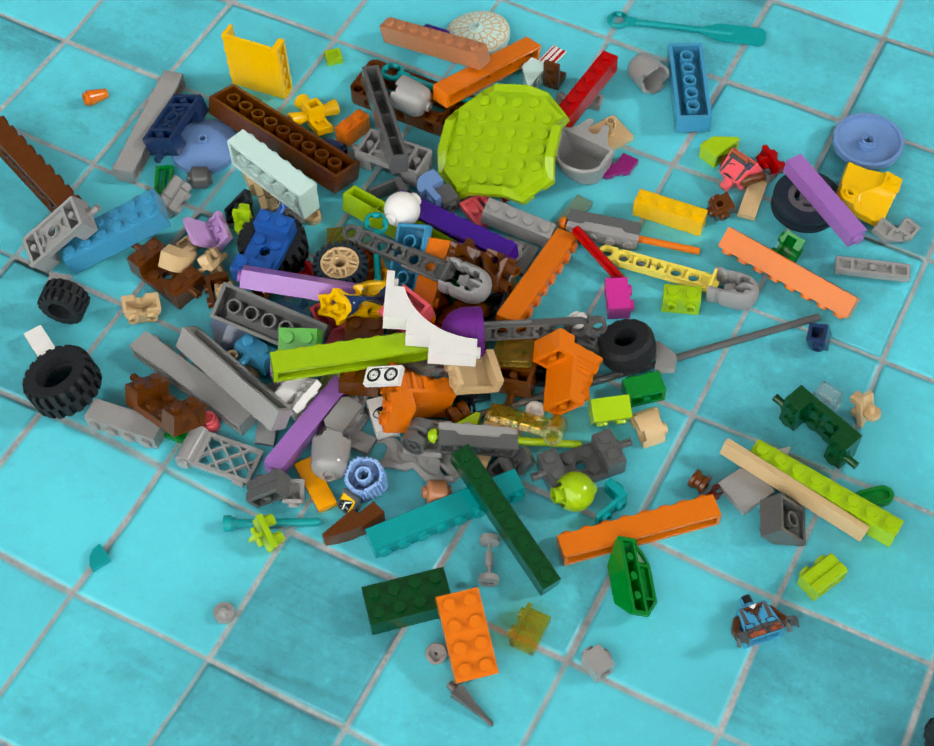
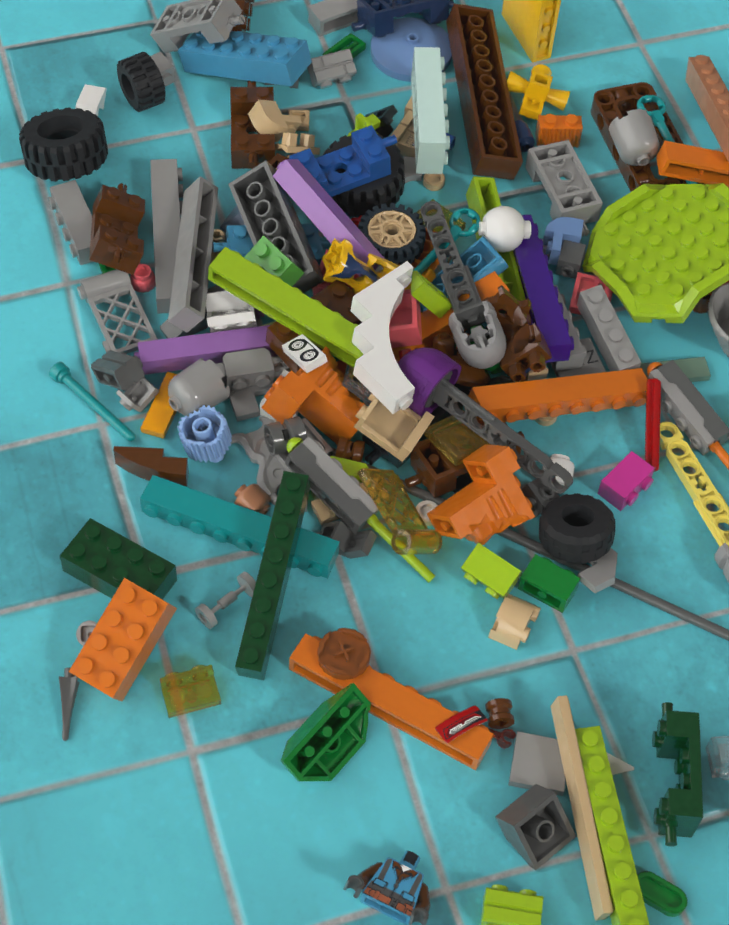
camera: 40 degrees right, 0 degrees up
(141, 308) = (197, 139): tan cylinder -> none
(199, 177) = (374, 70): dark grey head -> none
(210, 233) = (321, 119): lavender bracket -> none
(262, 535) = (74, 416): lime hips -> none
(333, 56) = (619, 57): lime tile -> none
(348, 501) = (172, 443): slope -> none
(385, 119) = (584, 139): dark grey brick -> none
(388, 188) = (527, 206): dark grey bracket -> none
(413, 282) = (429, 295): none -> lime slope
(446, 305) = (444, 343): none -> reddish brown piece
(575, 492) = (368, 610): lime brick -> none
(591, 526) = (344, 653): none -> dark orange tile
(597, 662) = (211, 777): light grey brick -> none
(601, 457) = (382, 585): dark grey brick -> none
(619, 497) = (397, 660): teal bracket -> none
(681, 299) = (688, 535): lime brick -> none
(691, 505) = (460, 723): none -> sticker

